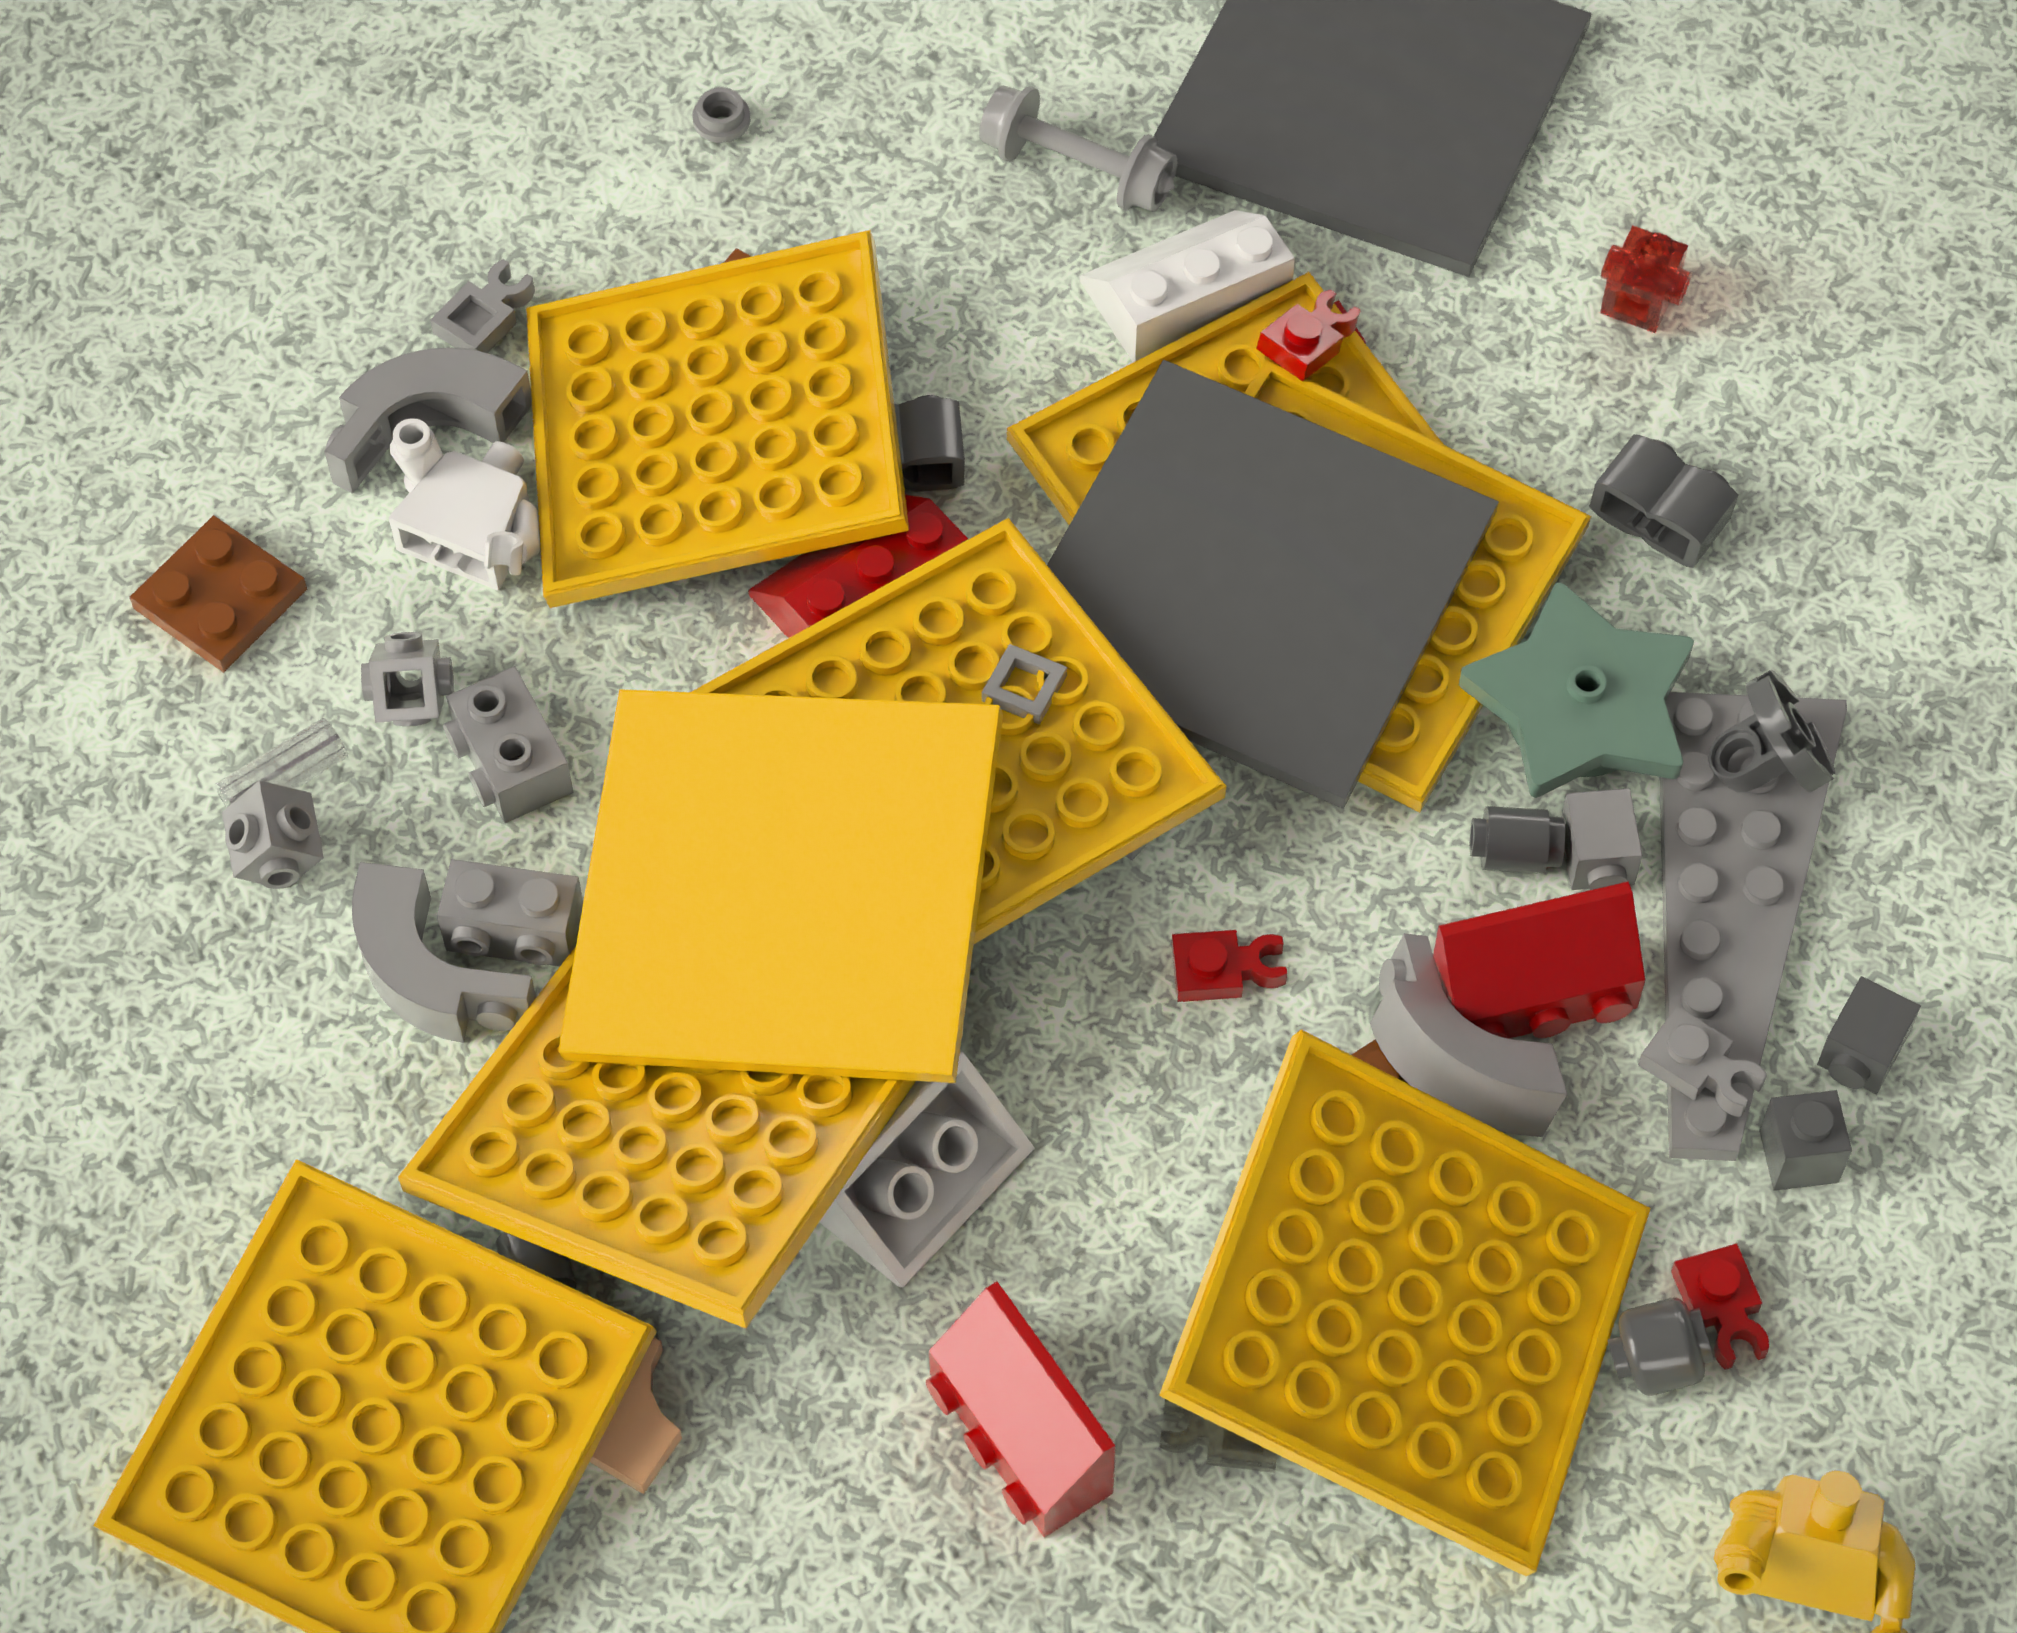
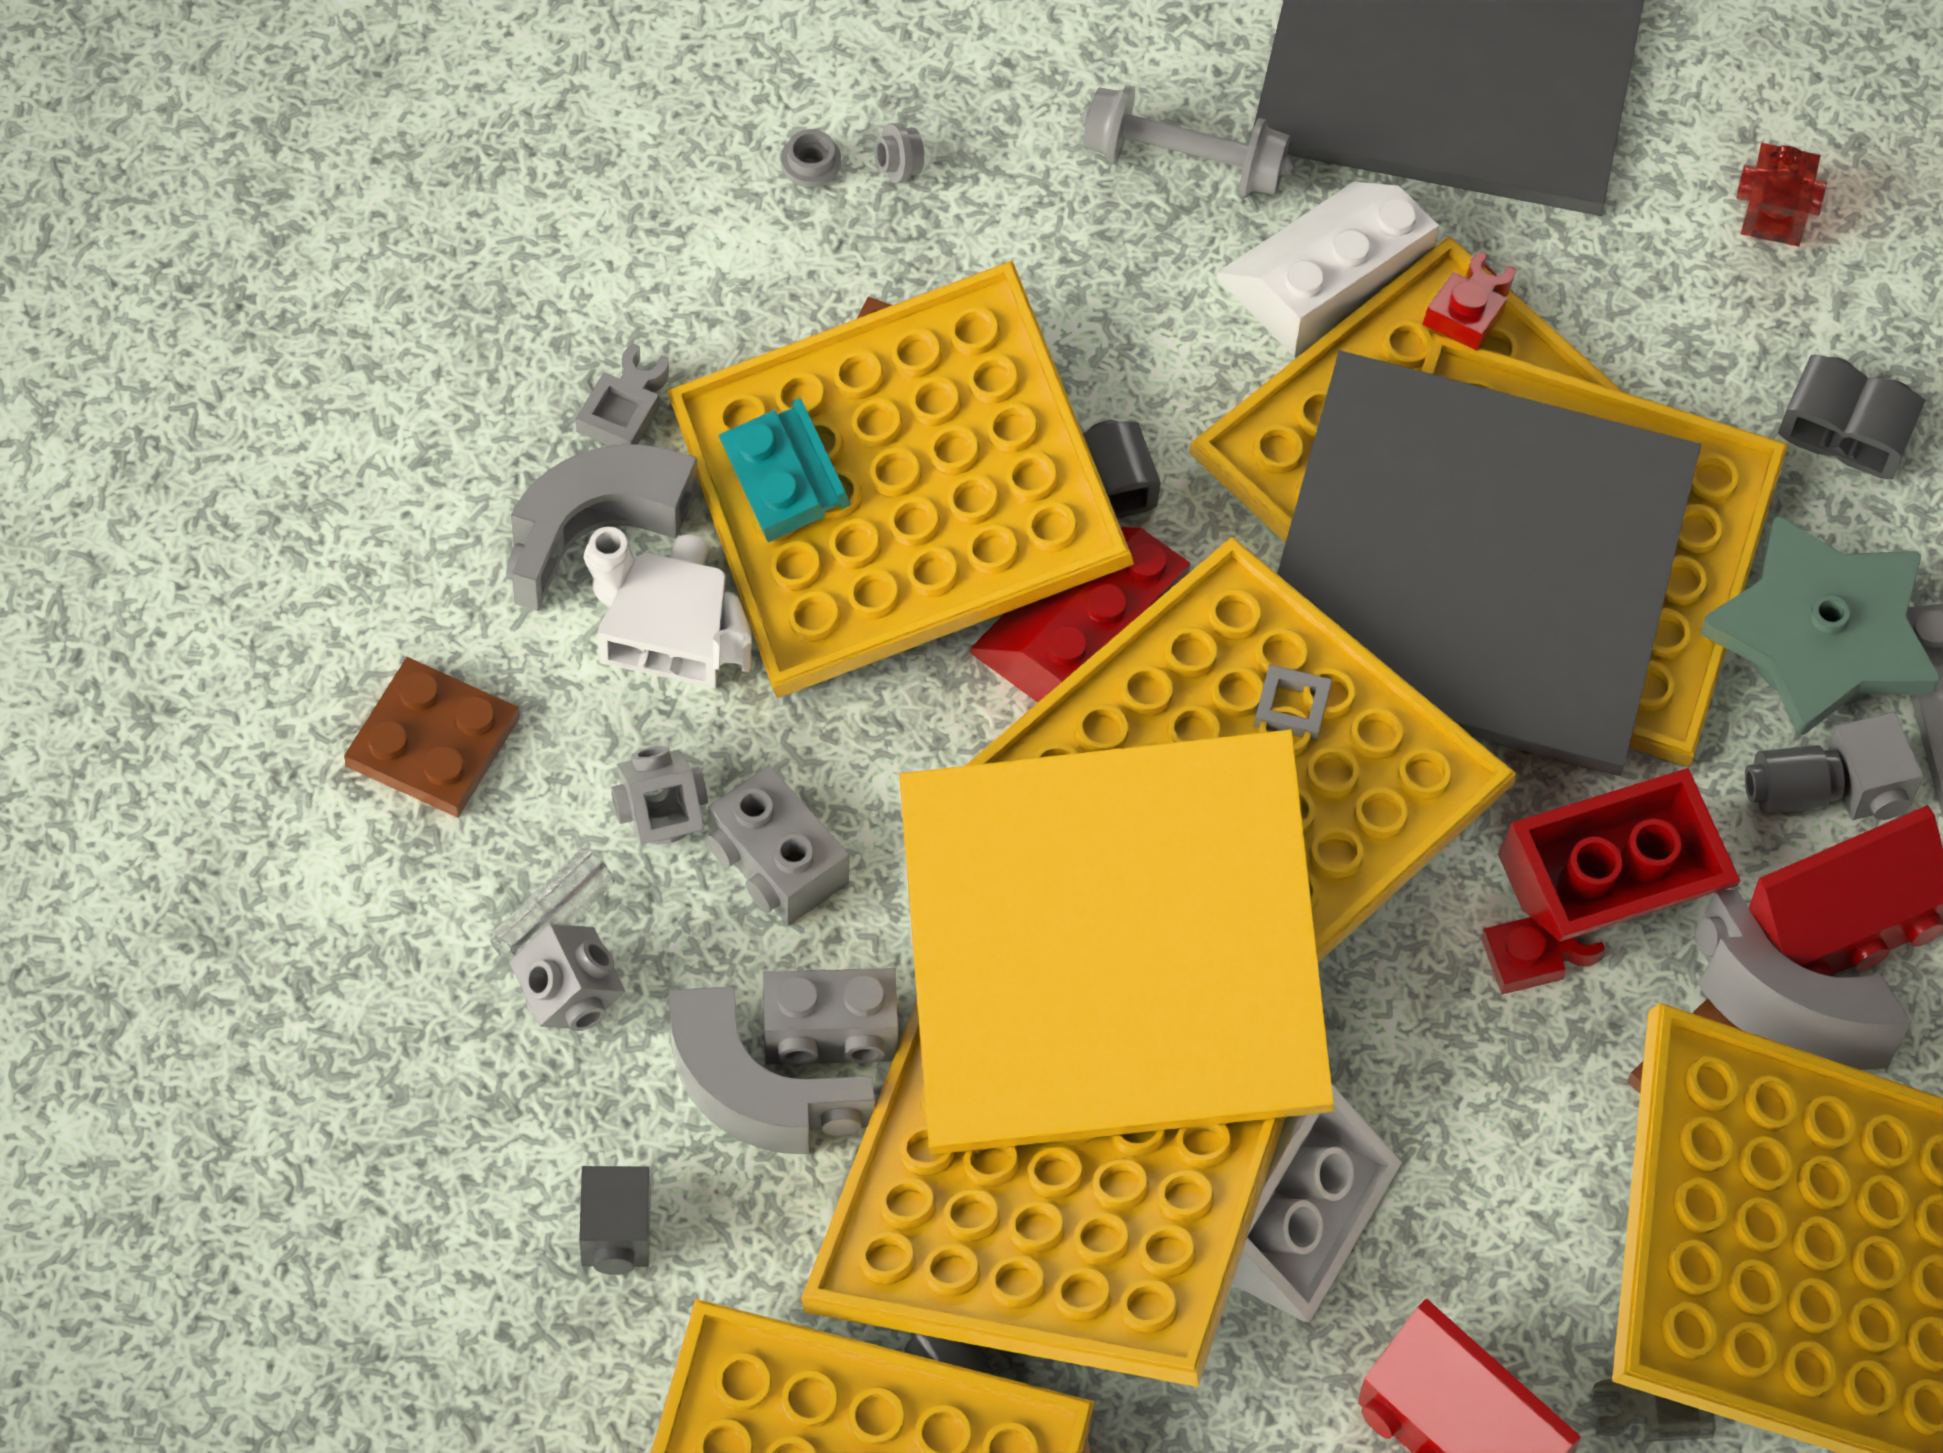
camera: 15 degrees left, 0 degrees up
(255, 1071) = (615, 1218): none -> dark grey brick
(606, 394) = (784, 470): none -> teal plate
(804, 121) = (899, 152): none -> light grey plate
(1315, 883) = (1616, 856): none -> red slope

